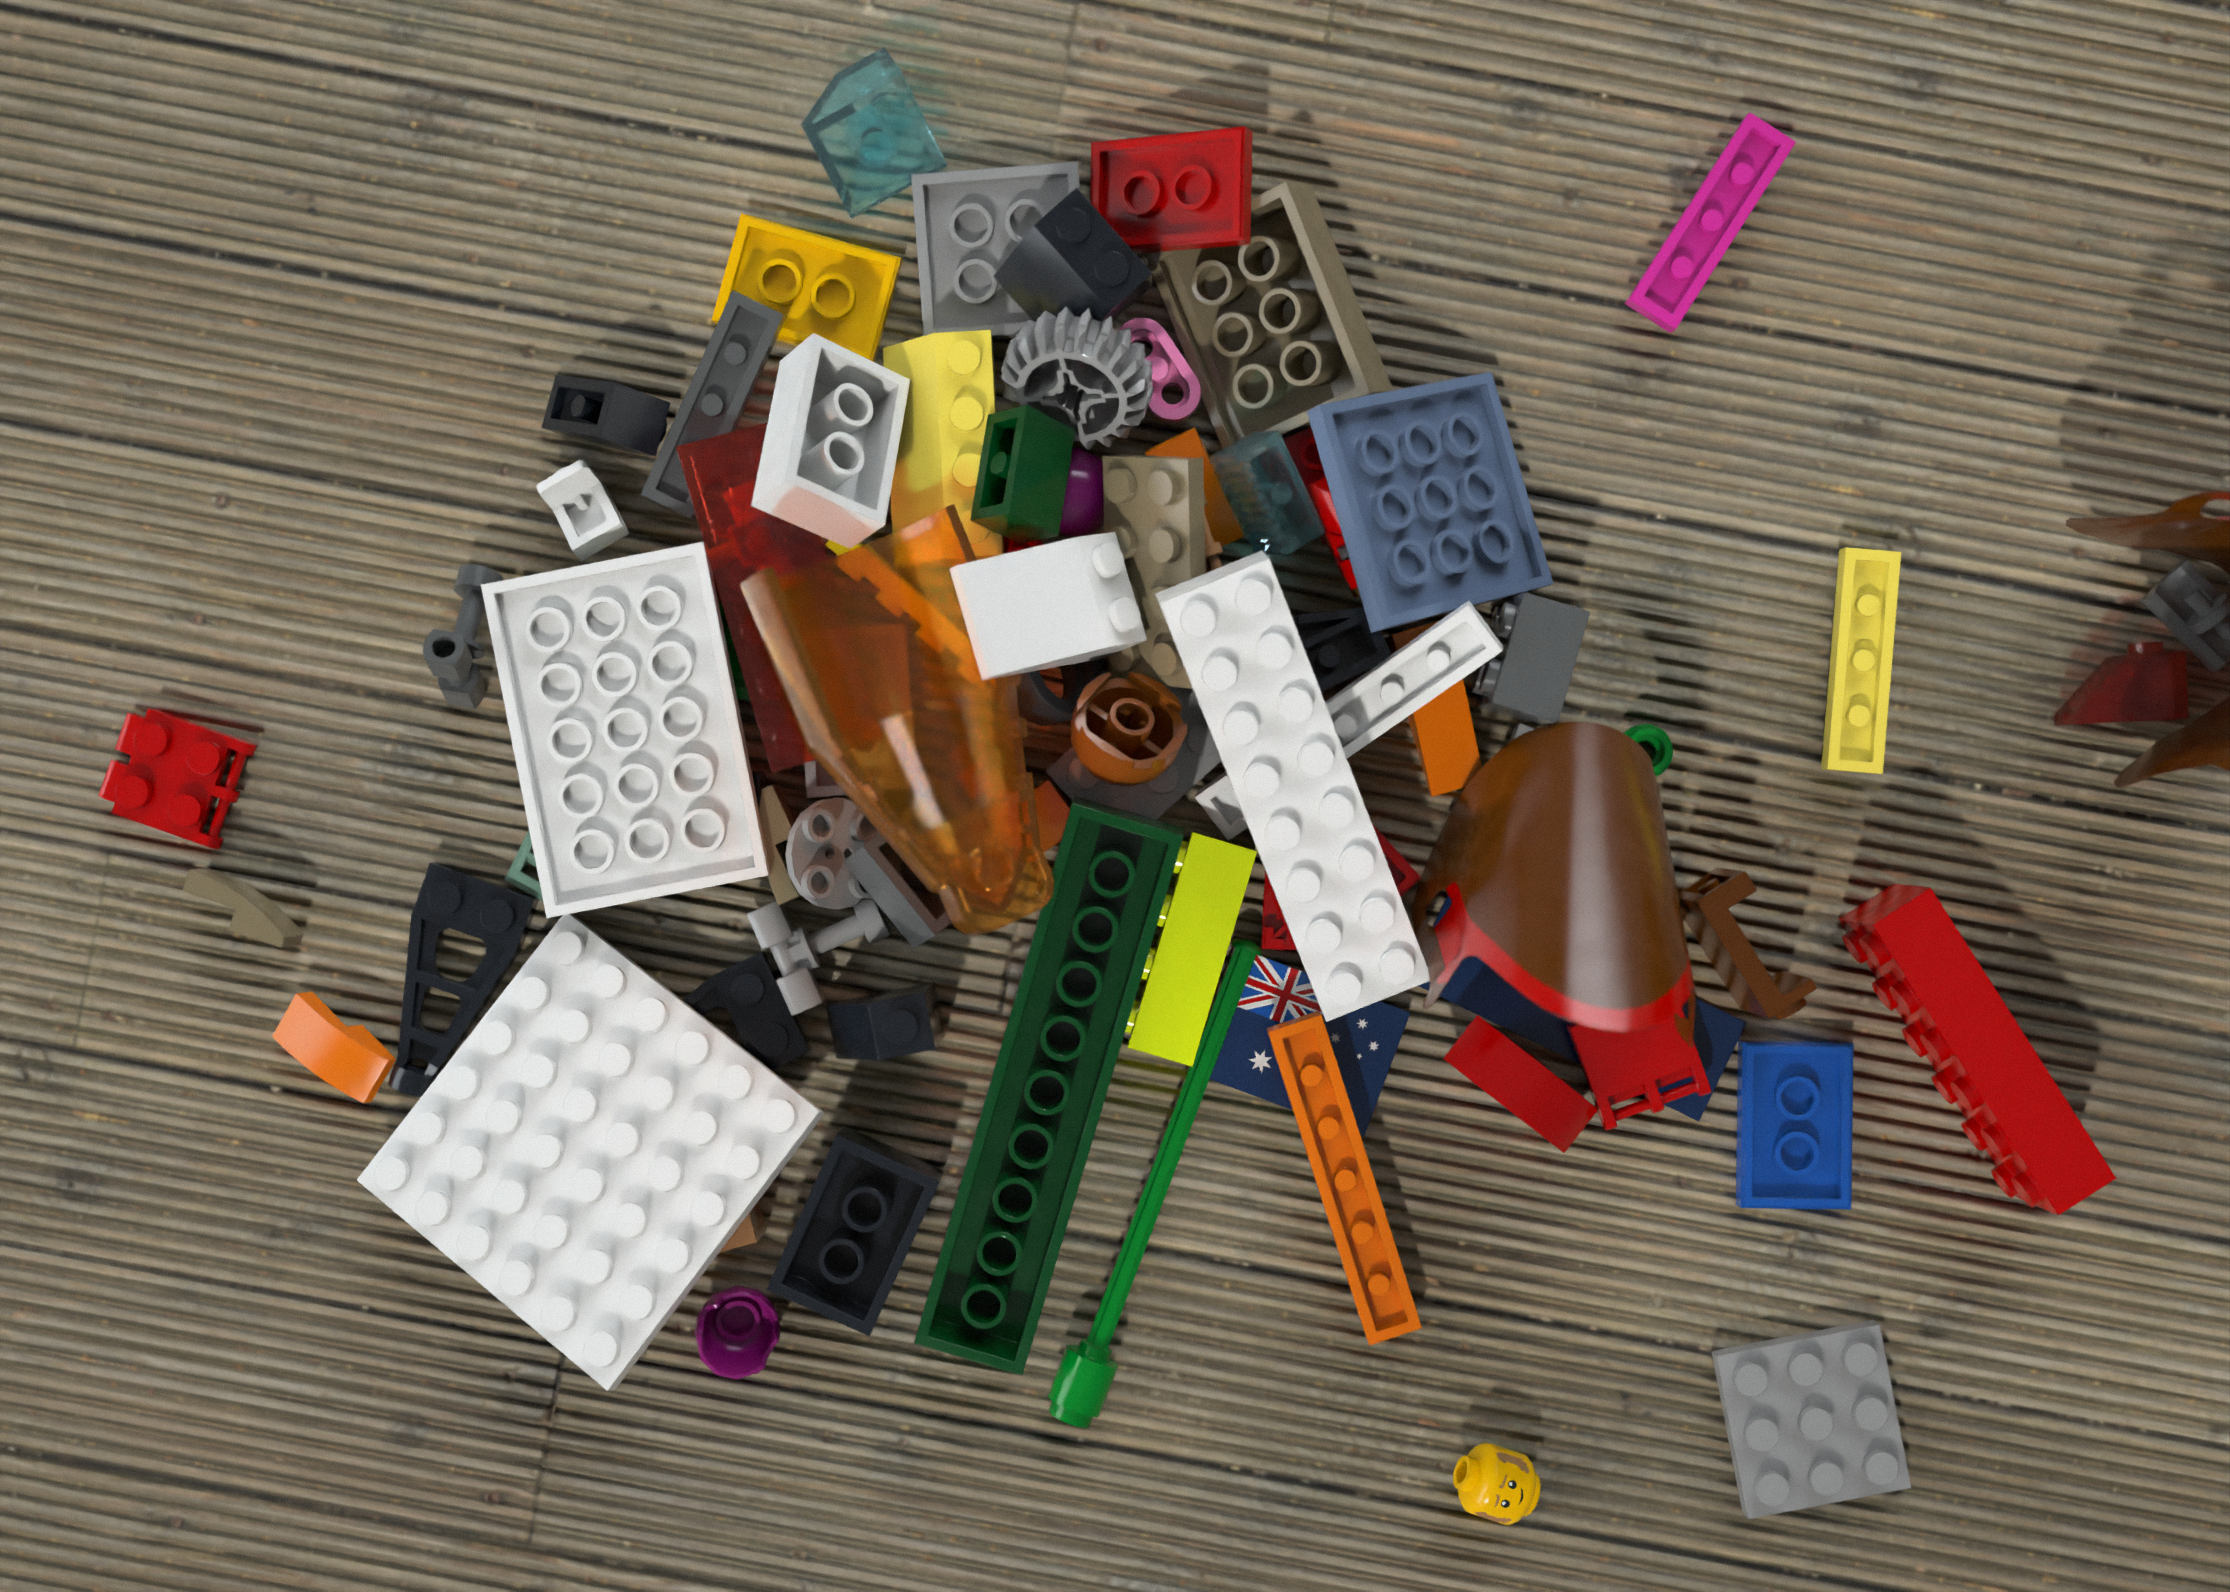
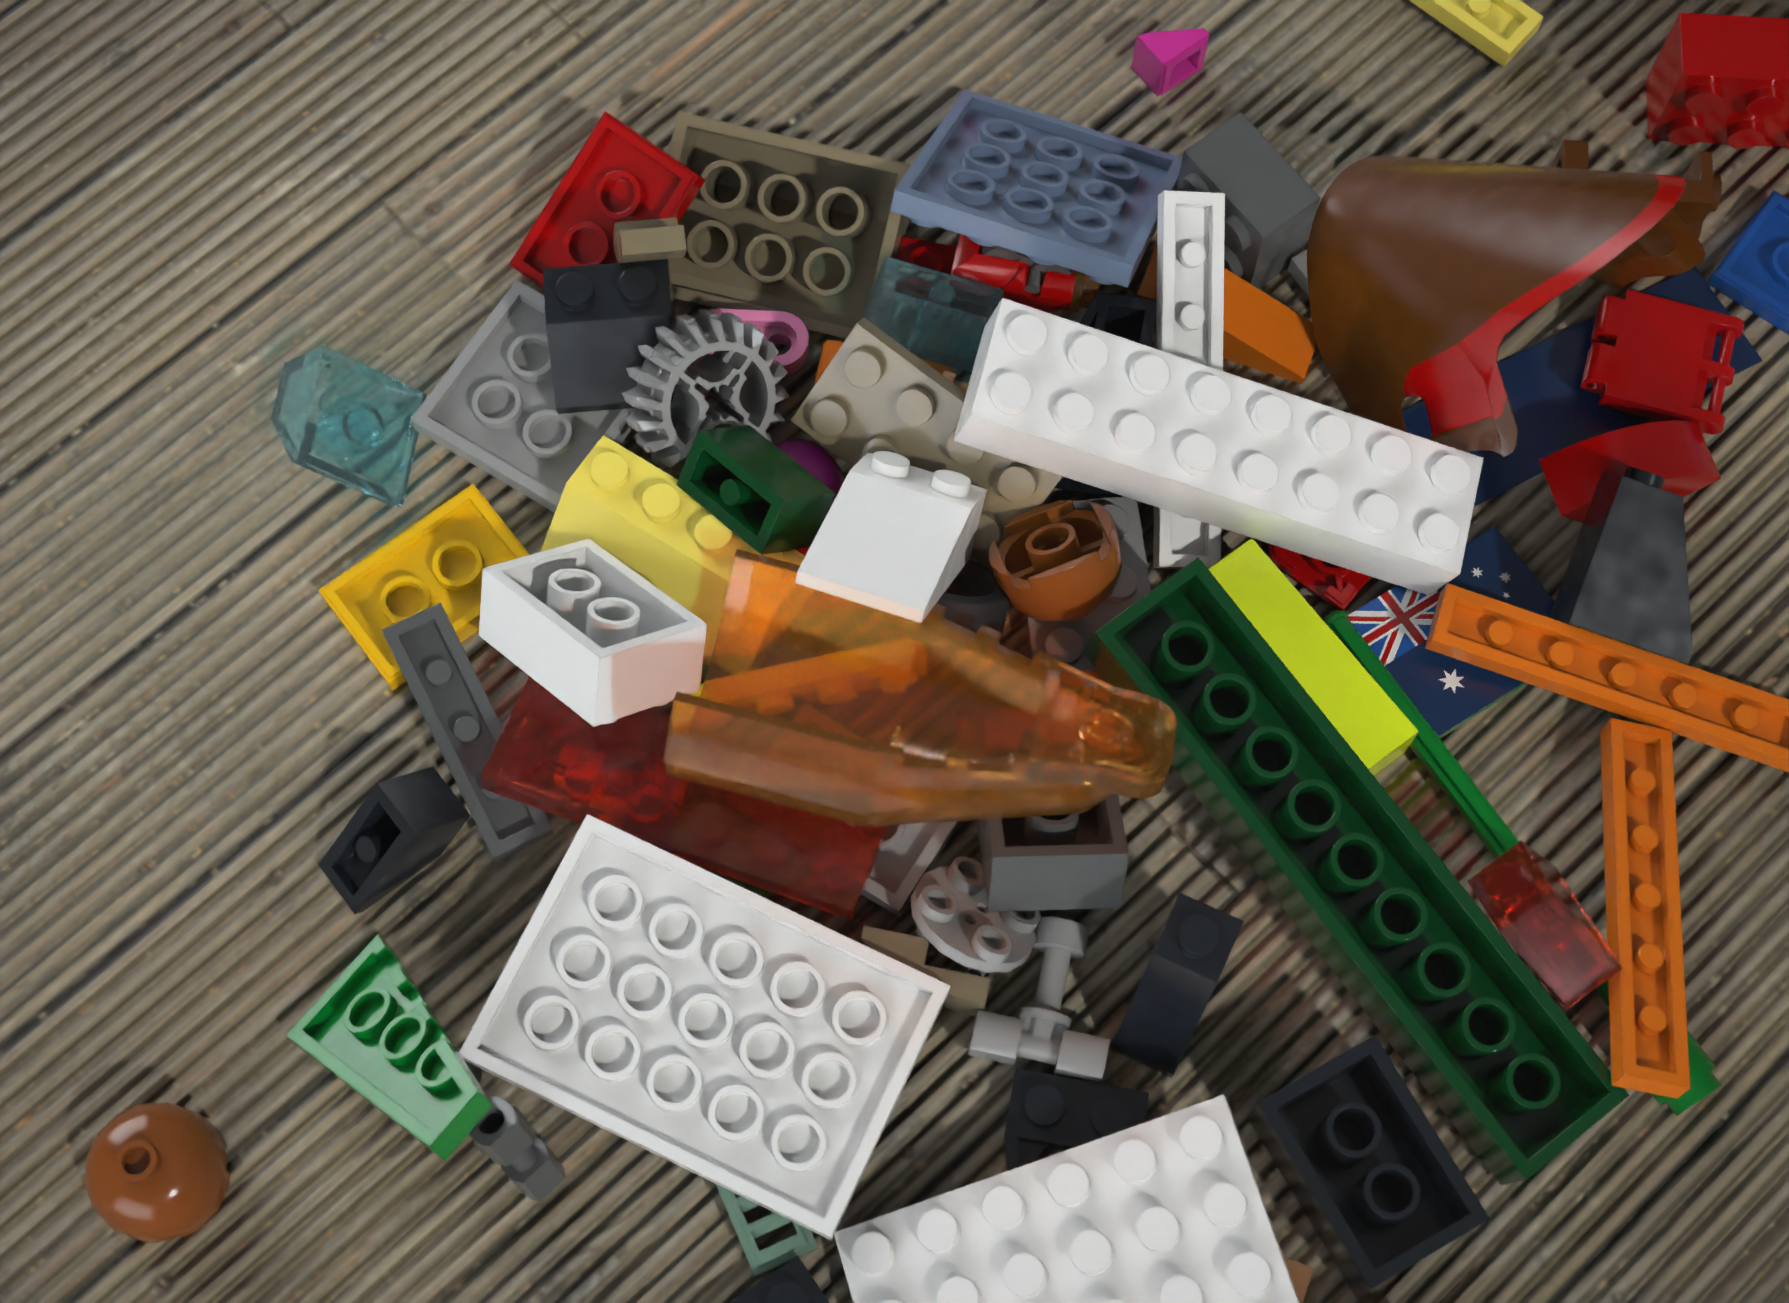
camera: 50 degrees left, 20 degrees down
(280, 440) = (157, 1172): none -> dark orange cylinder
(452, 537) = (393, 1050): none -> wing
(583, 508) = (463, 922): white bracket -> none
(1105, 1244) = (1545, 923): none -> clear red slope
(1149, 252) = (649, 240): none -> dark tan slope
(1174, 1300) = (1643, 910): none -> orange plate
(1425, 1136) = (1631, 567): none -> black slope
(1636, 509) = (1169, 57): none -> dark pink slope

